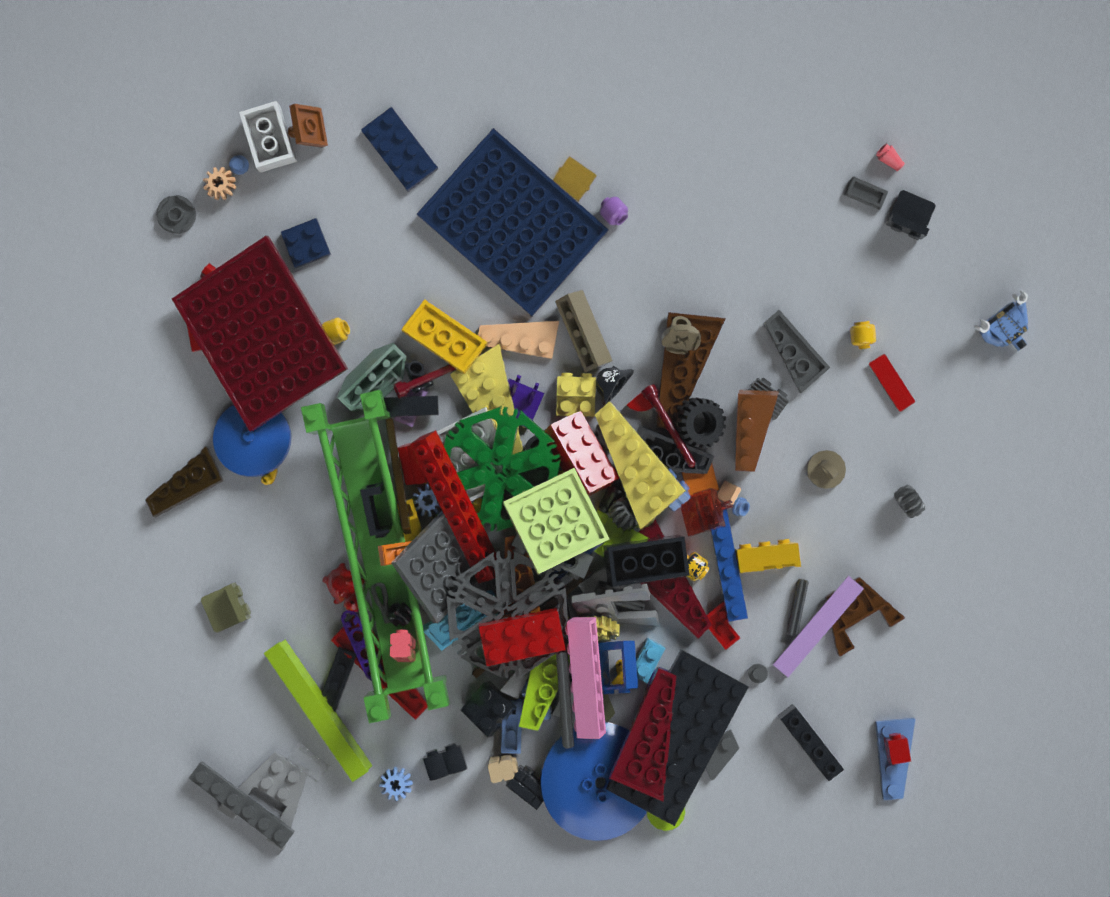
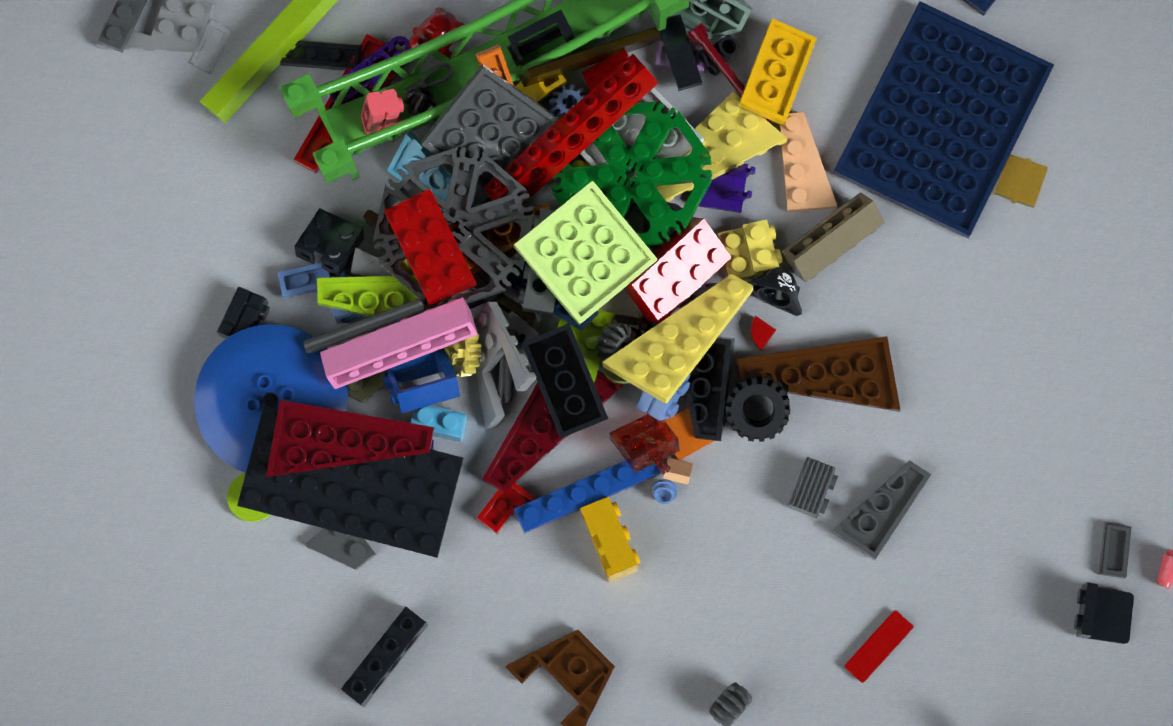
camera: 80 degrees right, 10 degrees down
(403, 782) = (214, 162): light blue gear -> none
(444, 762) = (249, 207): black brick -> none
(502, 767) = (260, 275): tan brick -> none
(614, 211) = (995, 237): medium lavender head -> none
(651, 394) = (777, 341): dark red piece -> none
(681, 337) = (860, 354): dark tan tile -> none
(697, 566) = (573, 452): yellow head -> none
(753, 420) = (771, 473): dark orange wedge -> none
(757, 673) = (456, 568): dark grey plate -> none
(797, 608) = (555, 598): dark grey axle -> none
(818, 626) = (537, 628): lavender tile -> none
(826, 469) = (742, 589): dark tan tile -> none
(863, 334) = (930, 590): yellow head -> none

